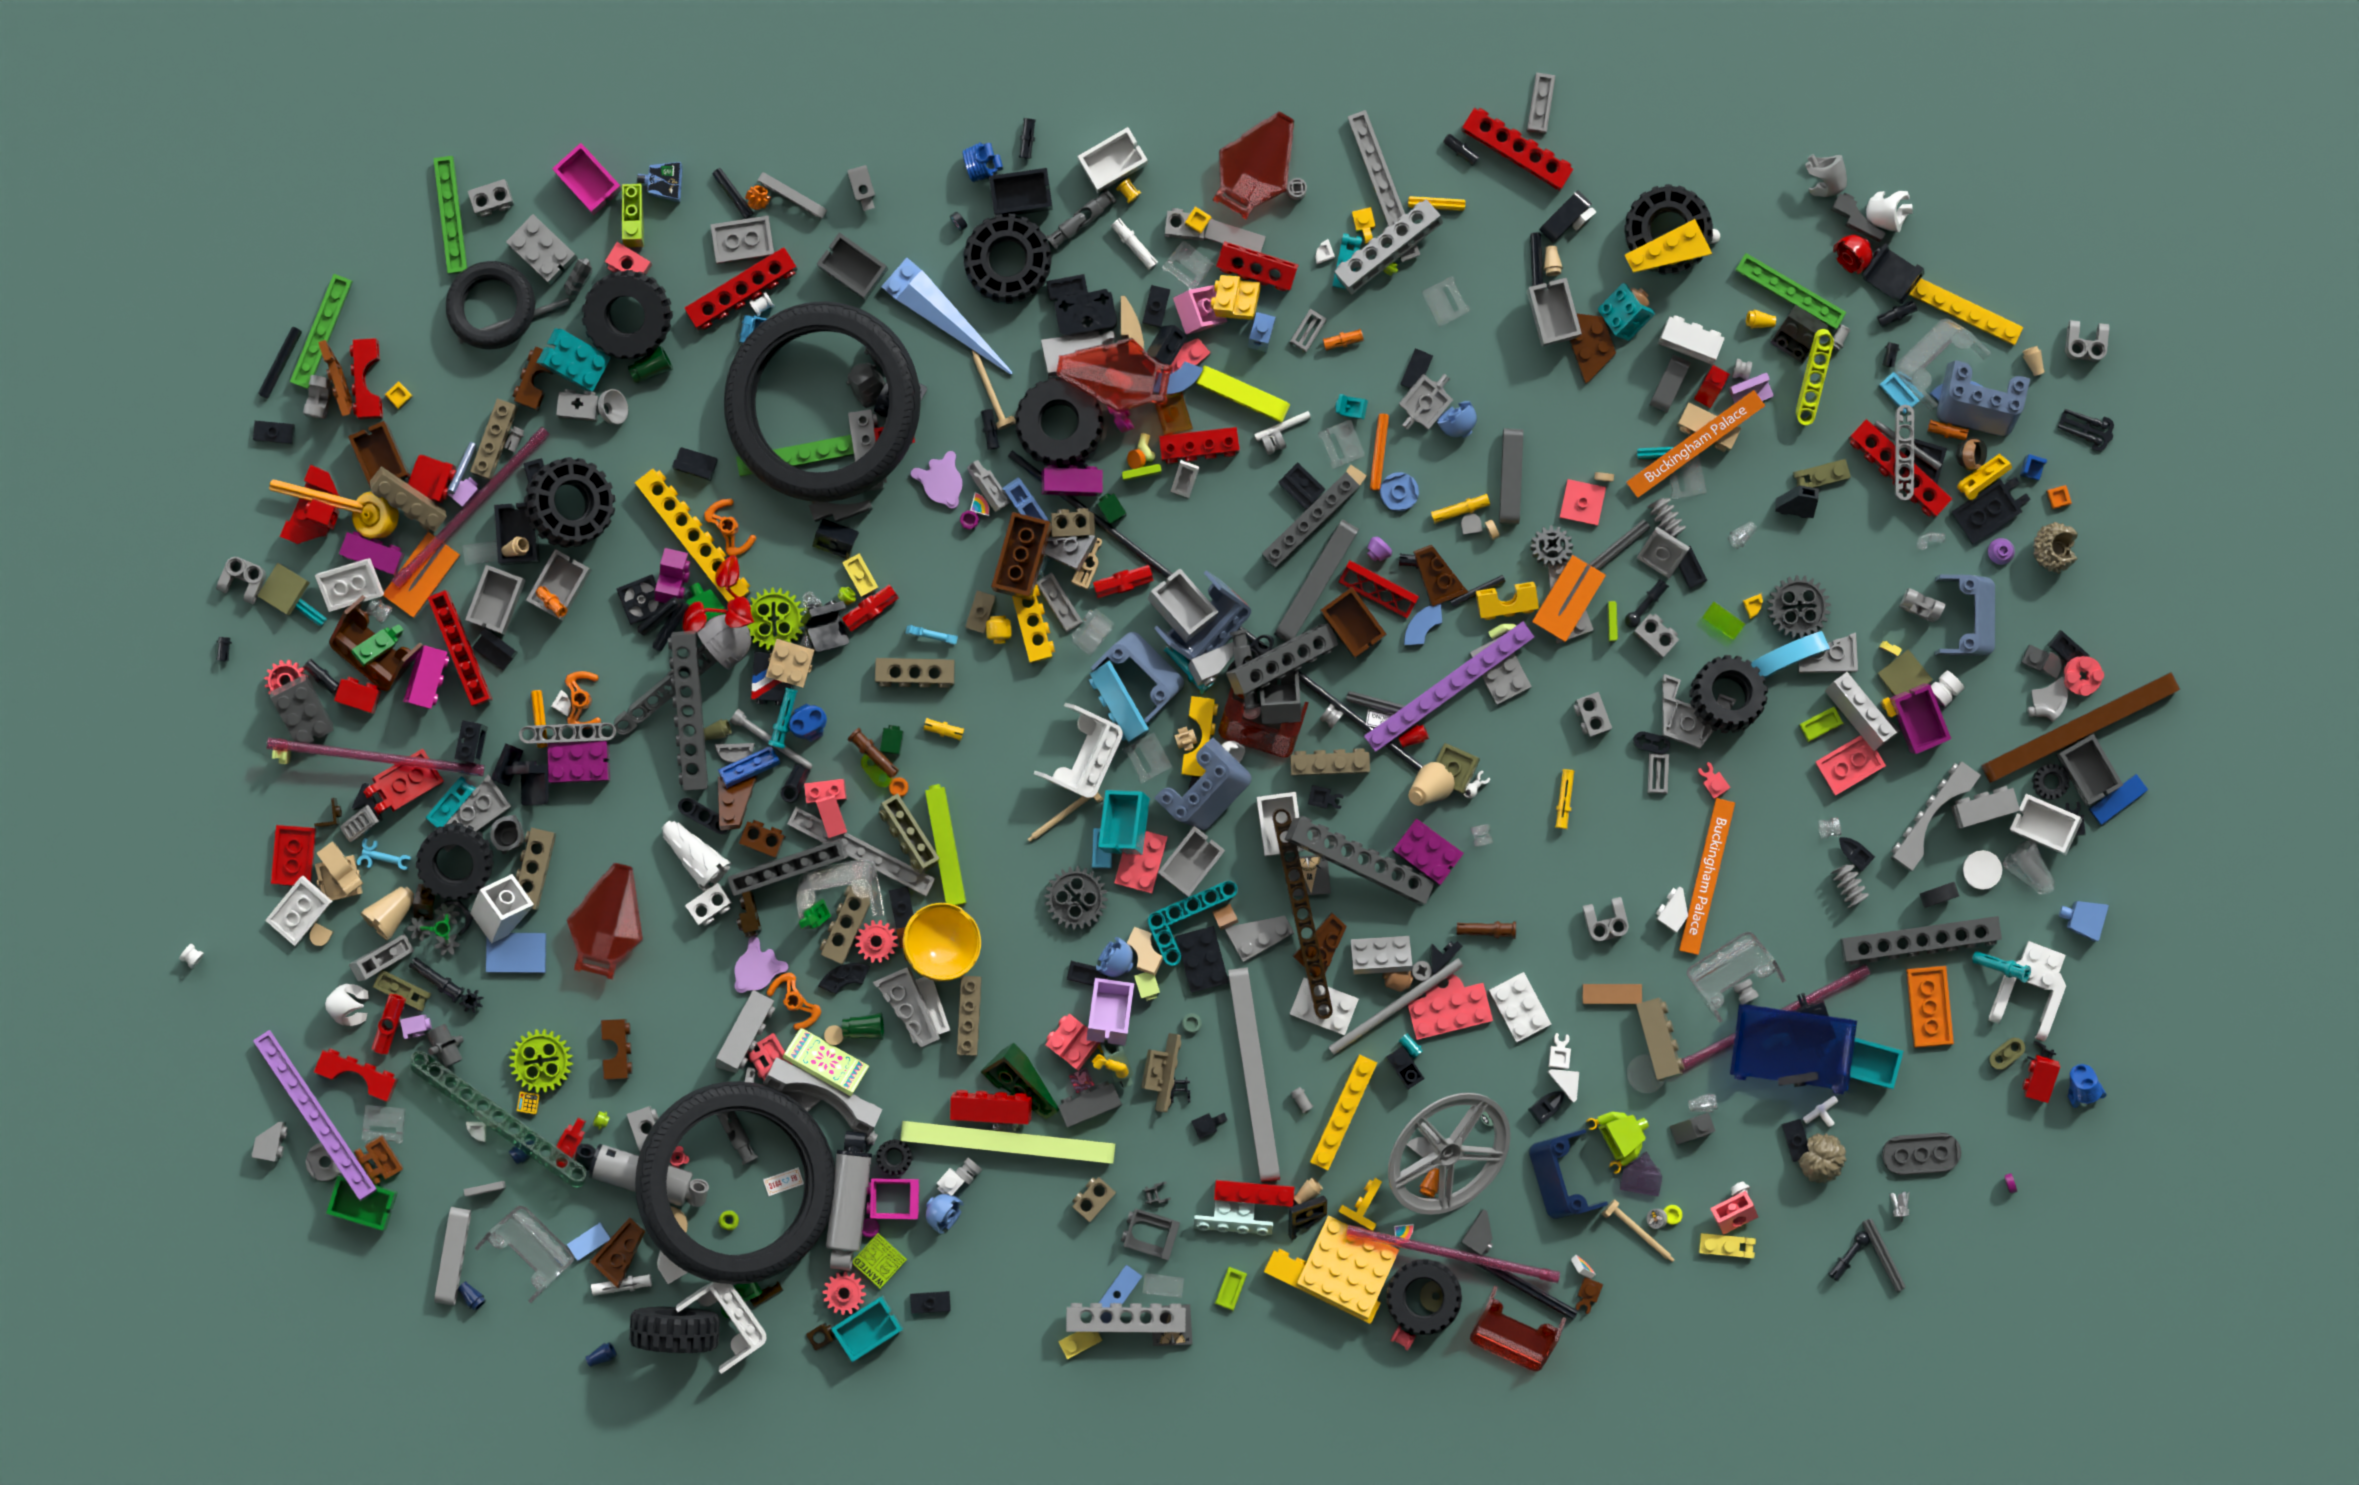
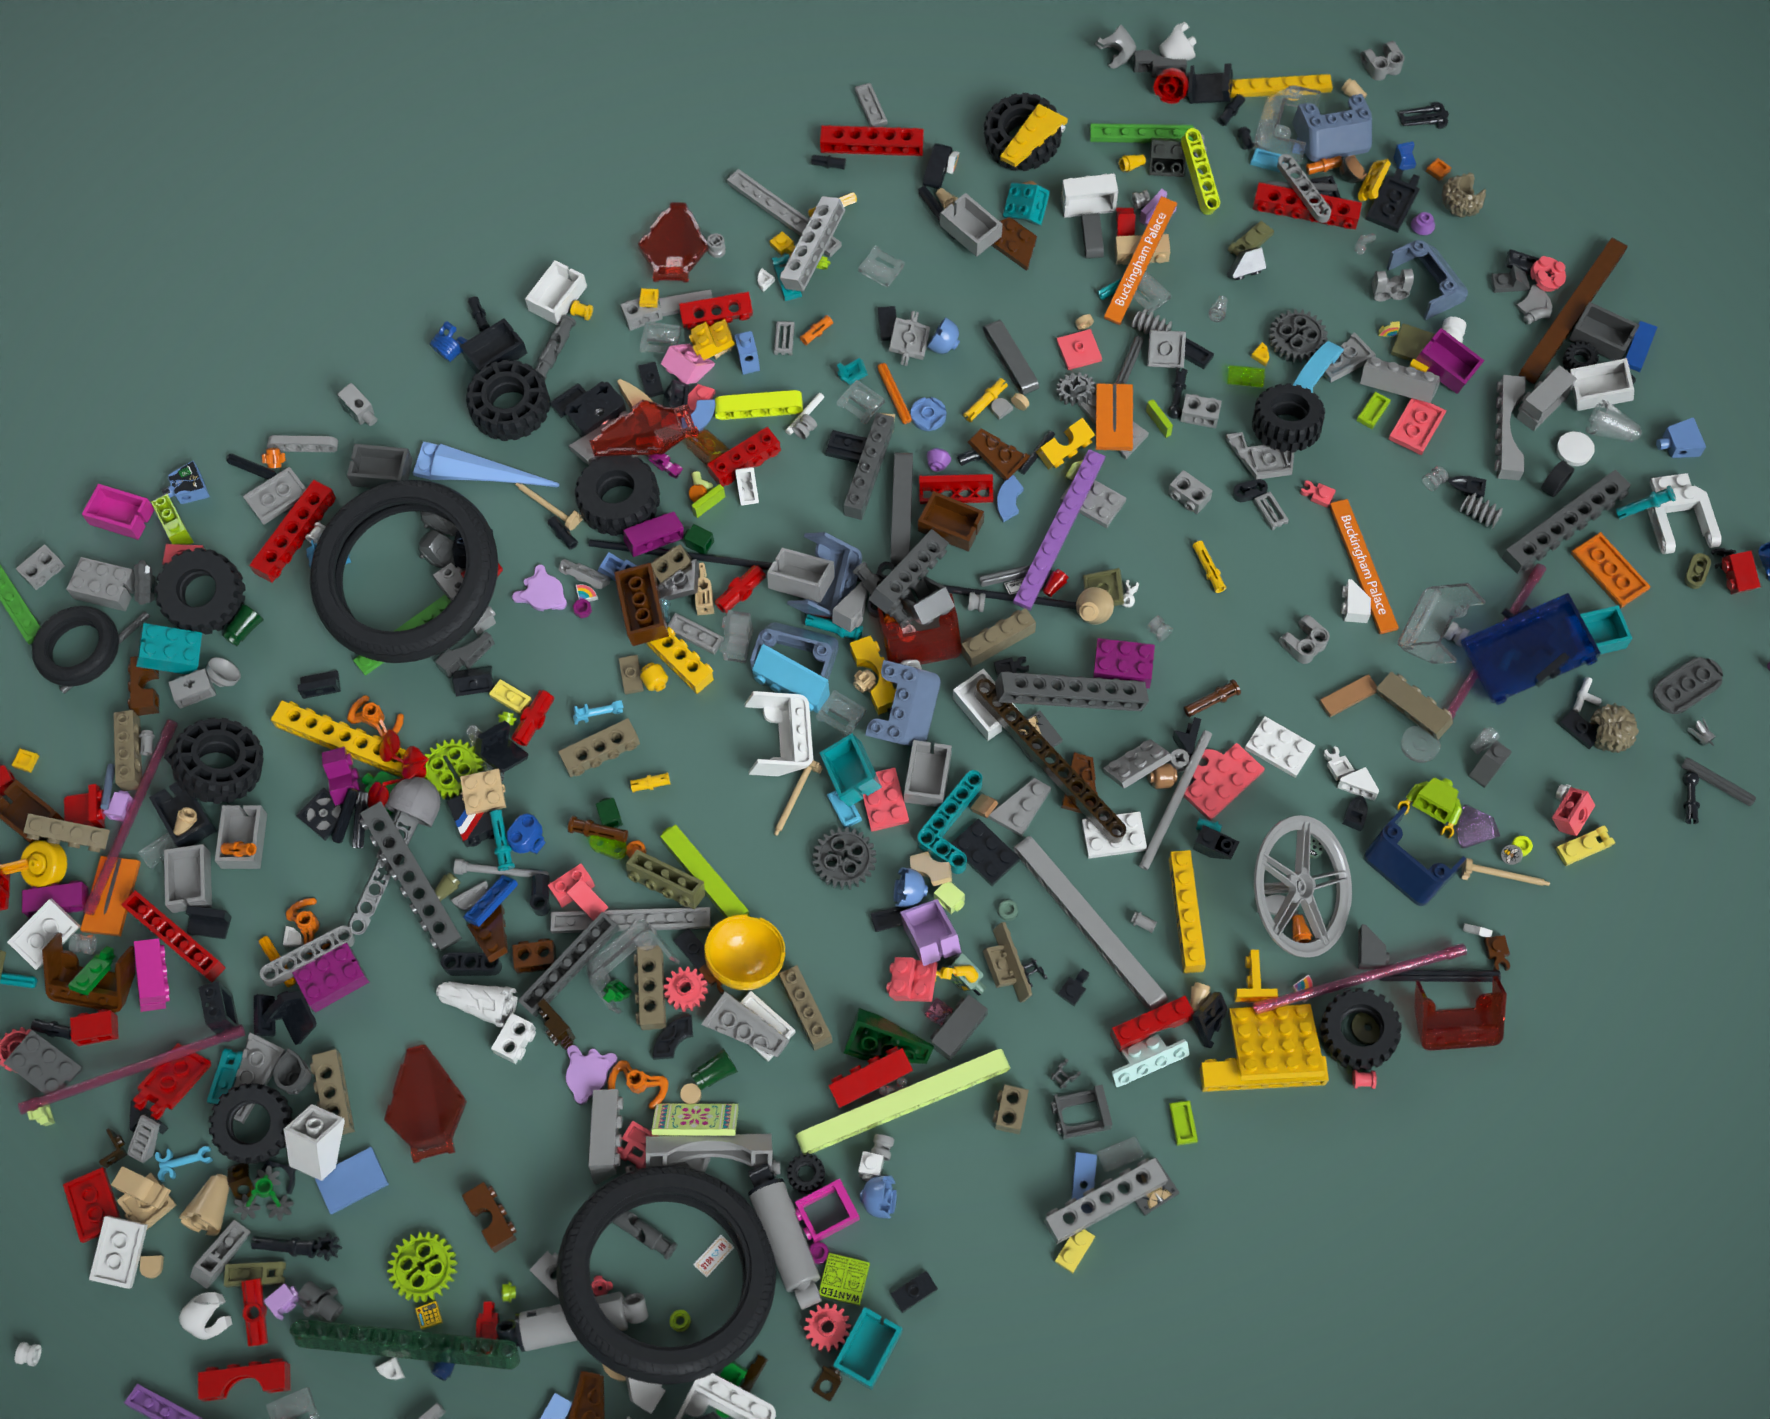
camera: 25 degrees left, 20 degrees down
(958, 221) = (453, 396): black tile -> none
(1135, 245) = (610, 345): white pin -> none

